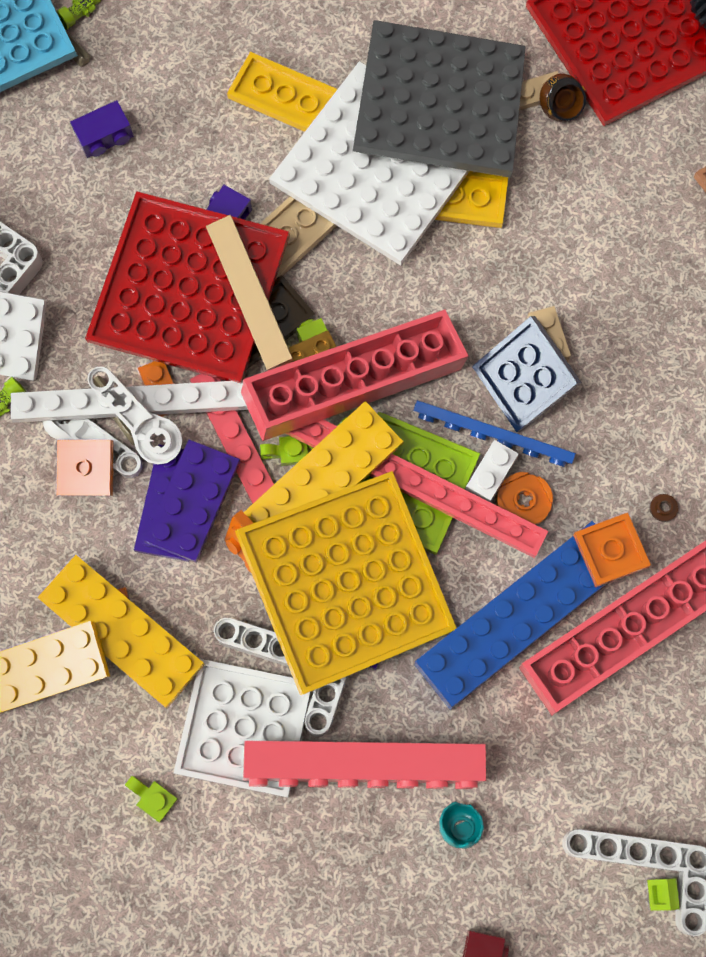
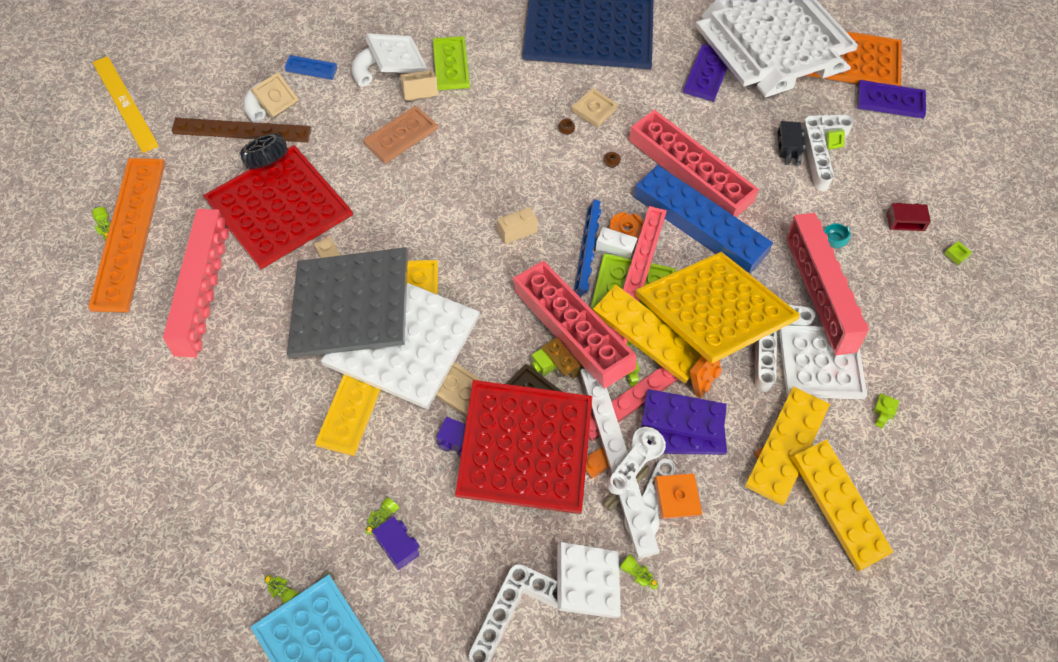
camera: 105 degrees left, 15 degrees down
(139, 115) = (376, 519): none -> lime piece
(249, 293) = (525, 396): tan tile -> none
(526, 374) = (547, 229): plate -> none
(562, 98) = (336, 235): reddish brown piece -> none
(611, 549) = (655, 168): orange plate -> none
(665, 812) = (790, 141): none -> black hinge

